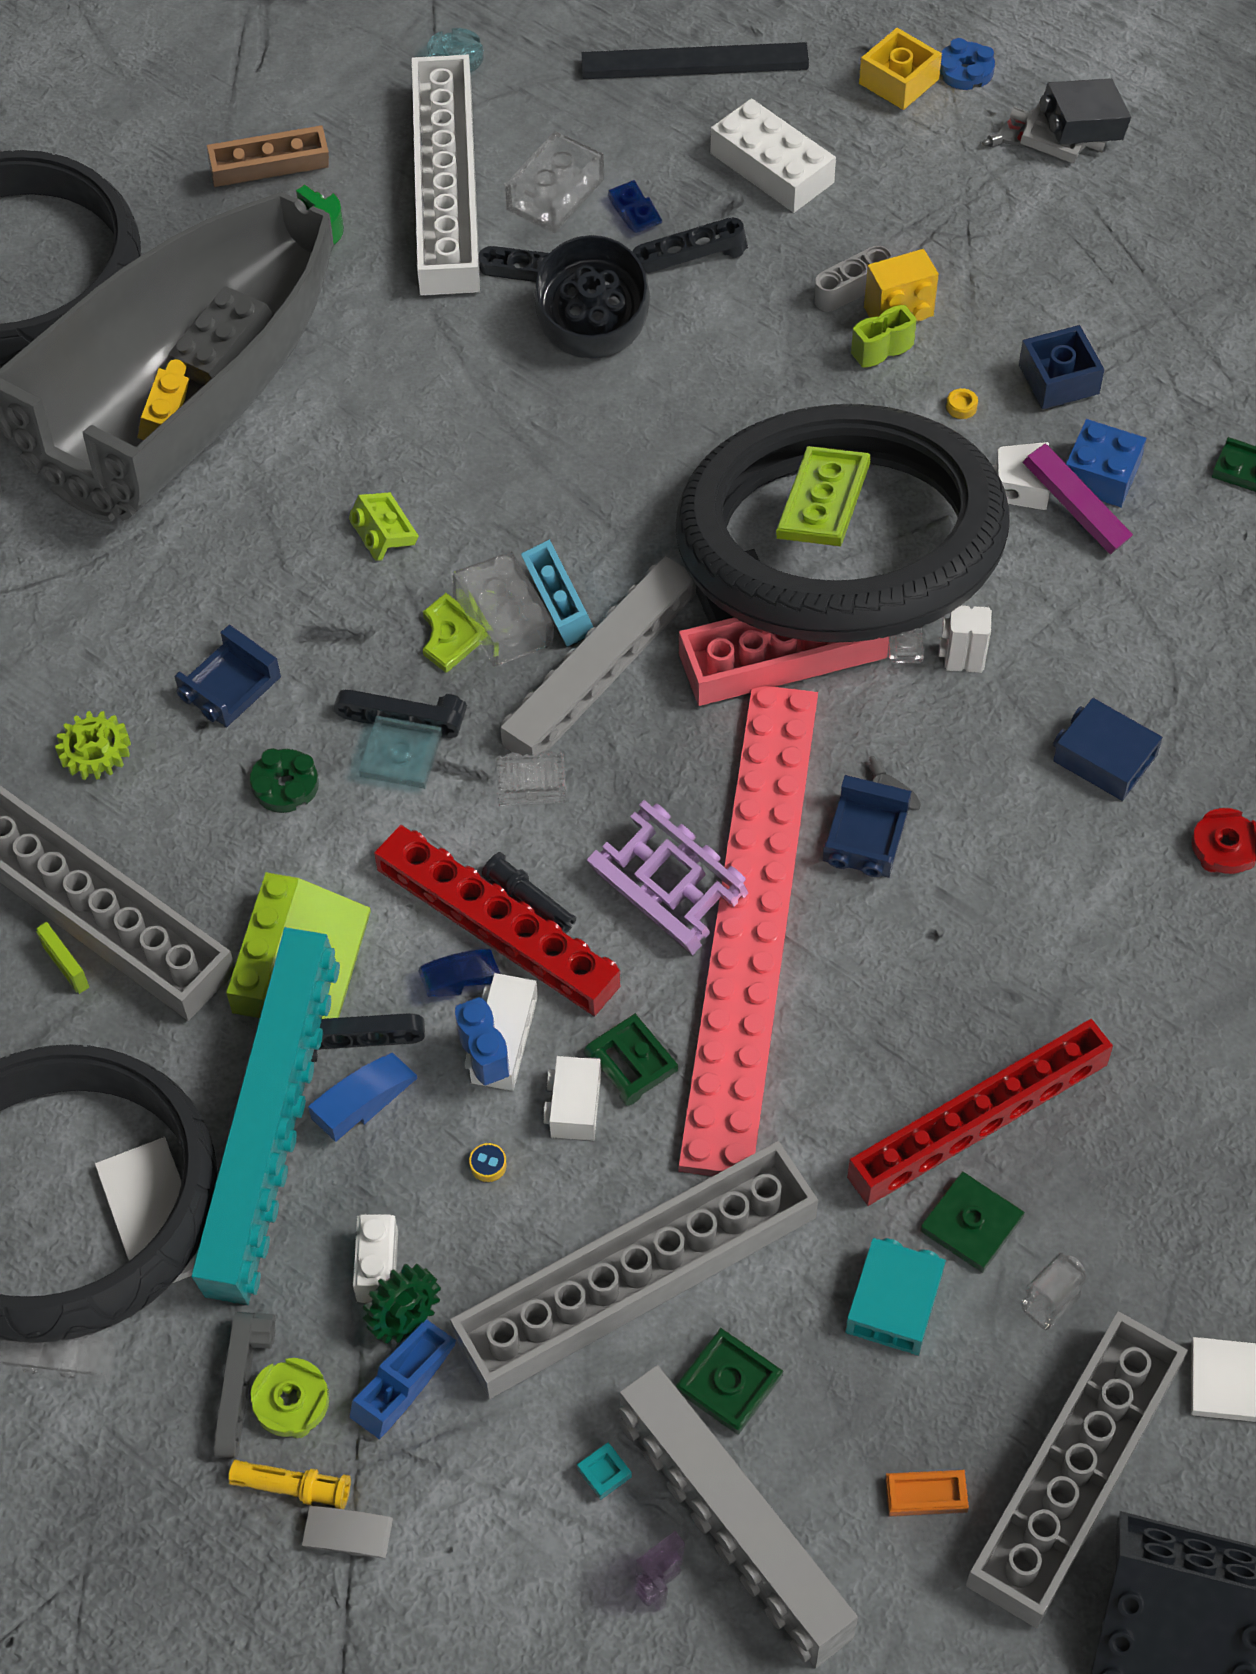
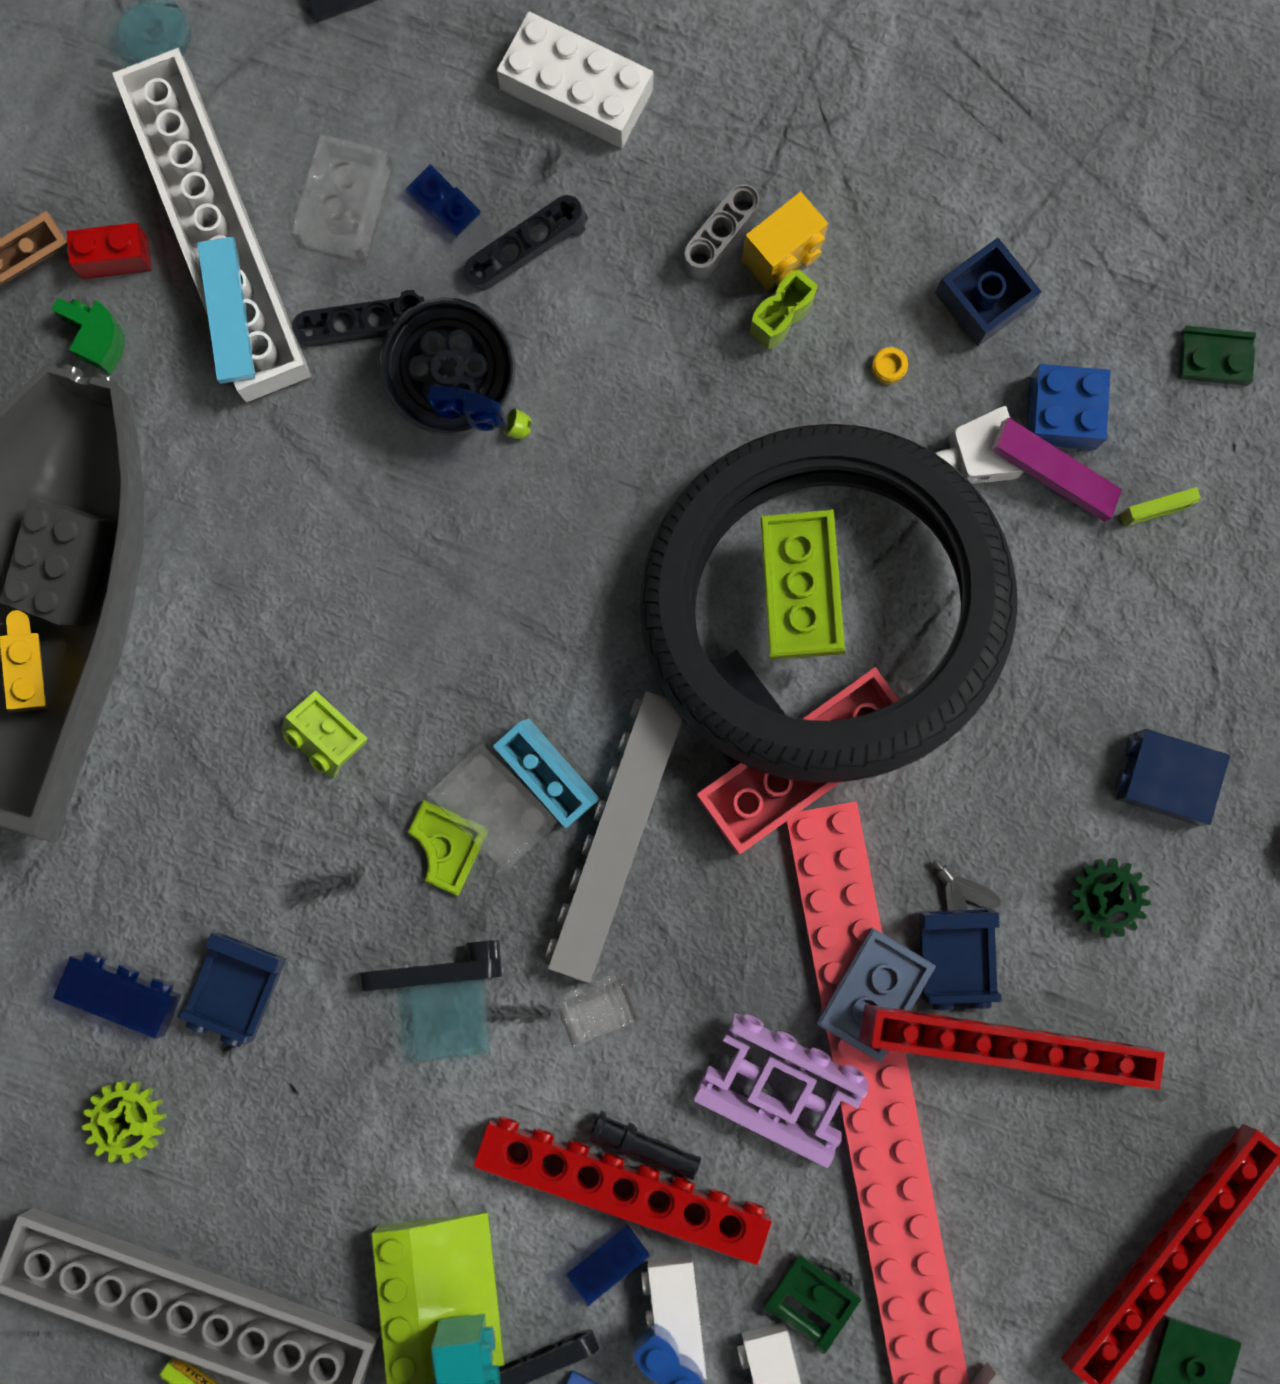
camera: 20 degrees left, 25 degrees up
(130, 654) = (118, 994): none -> clear blue brick
(281, 763) = (325, 1106): dark green plate -> none
(357, 171) = (109, 250): none -> red brick
(432, 216) = (226, 310): none -> medium azure tile
(596, 314) = (479, 410): none -> clear blue slope
(634, 363) = (517, 424): none -> lime hinge
(779, 830) = (878, 975): none -> sand blue tile
(887, 891) = (1011, 1047): none -> red brick
(966, 639) = (1006, 697): white brick -> none
(1018, 822) = (1117, 886): none -> dark green gear
(1162, 552) = (1160, 507): none -> lime tile

